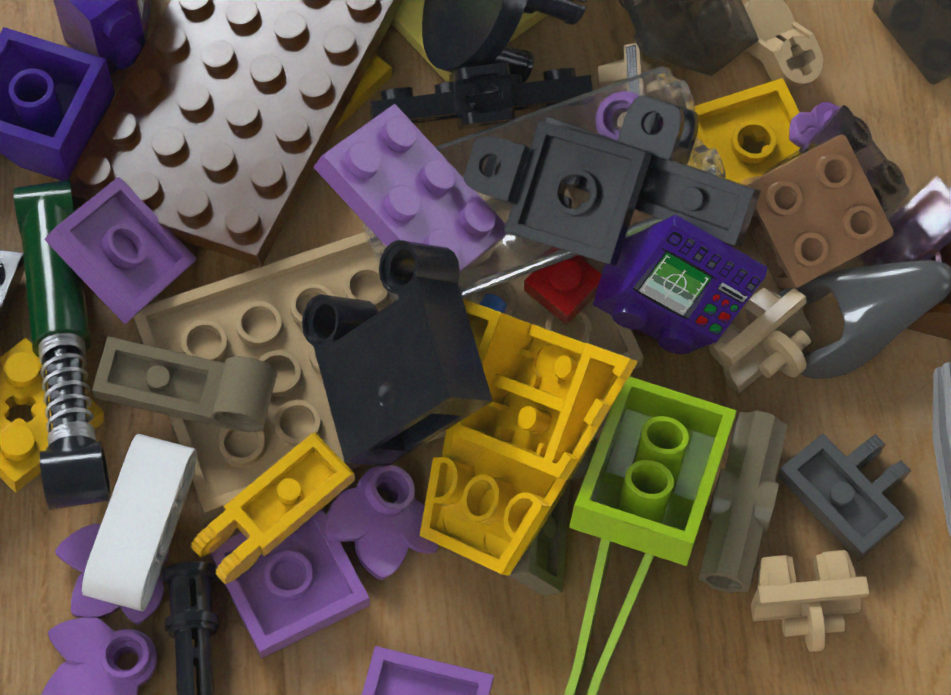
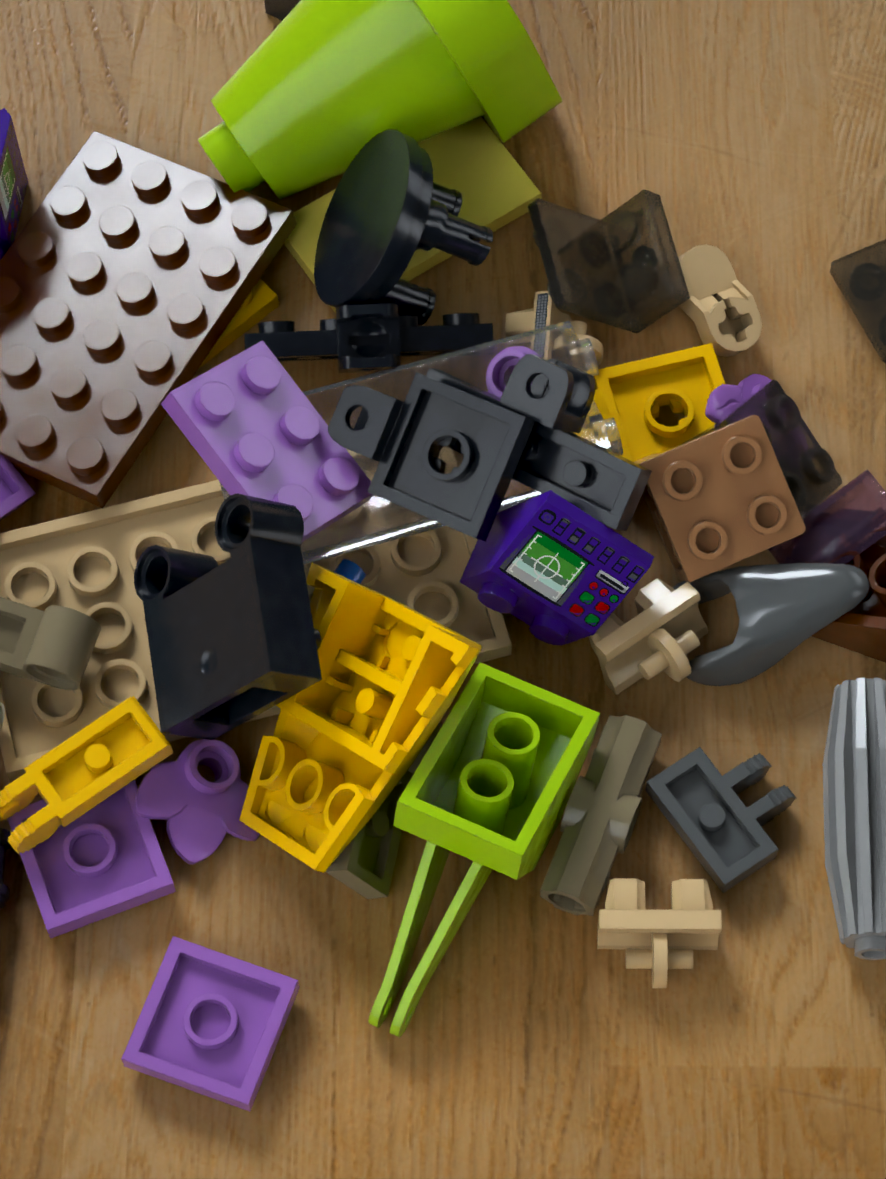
camera: 10 degrees right, 0 degrees up
(564, 287) = (431, 559): red plate -> none

